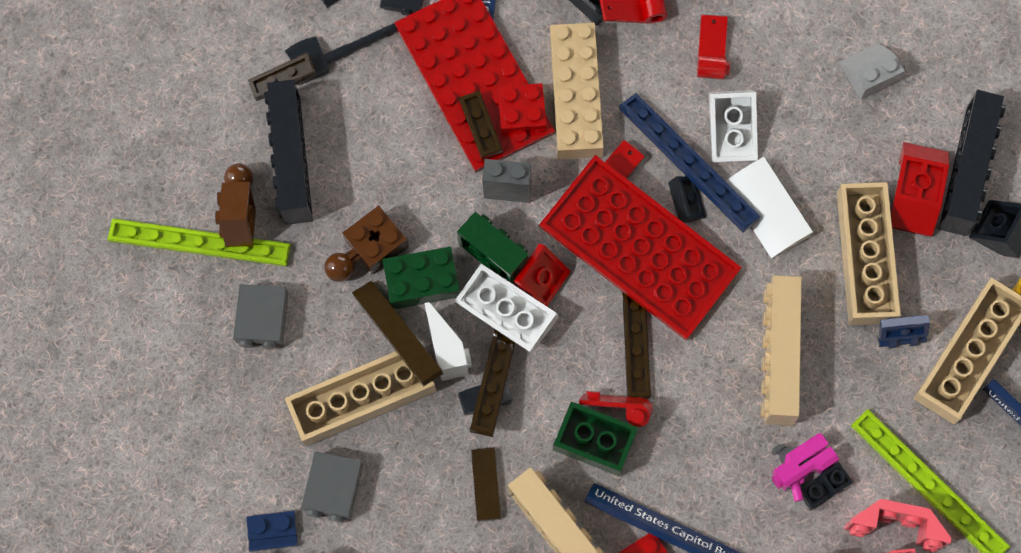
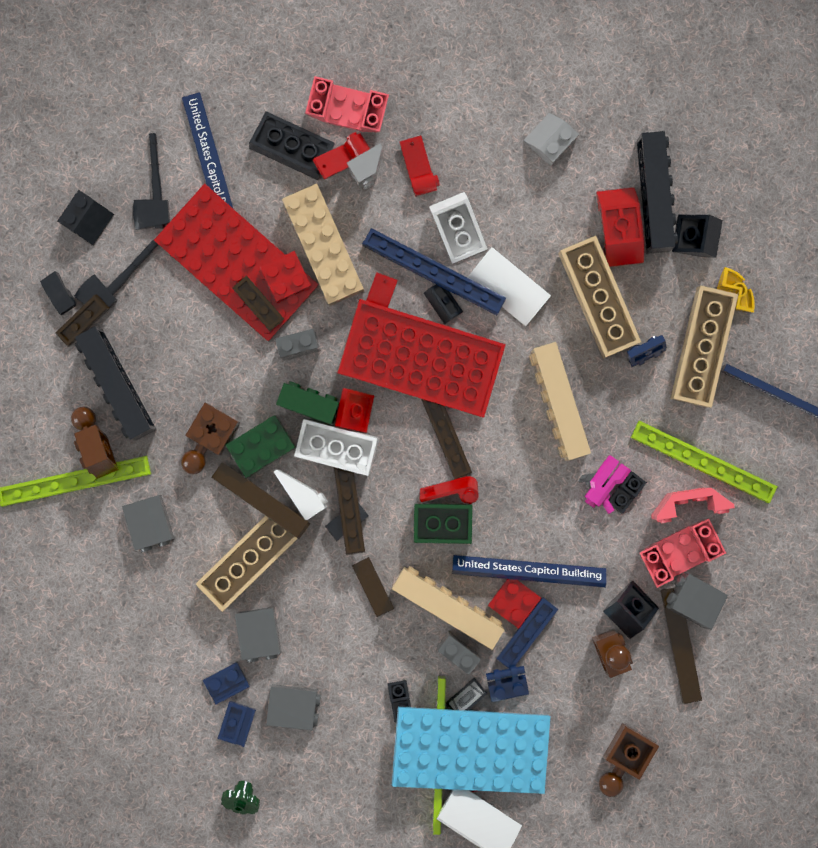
camera: 20 degrees left, 15 degrees up
(269, 40) = (58, 293): none -> black slope
(655, 24) = (366, 167): none -> light grey slope

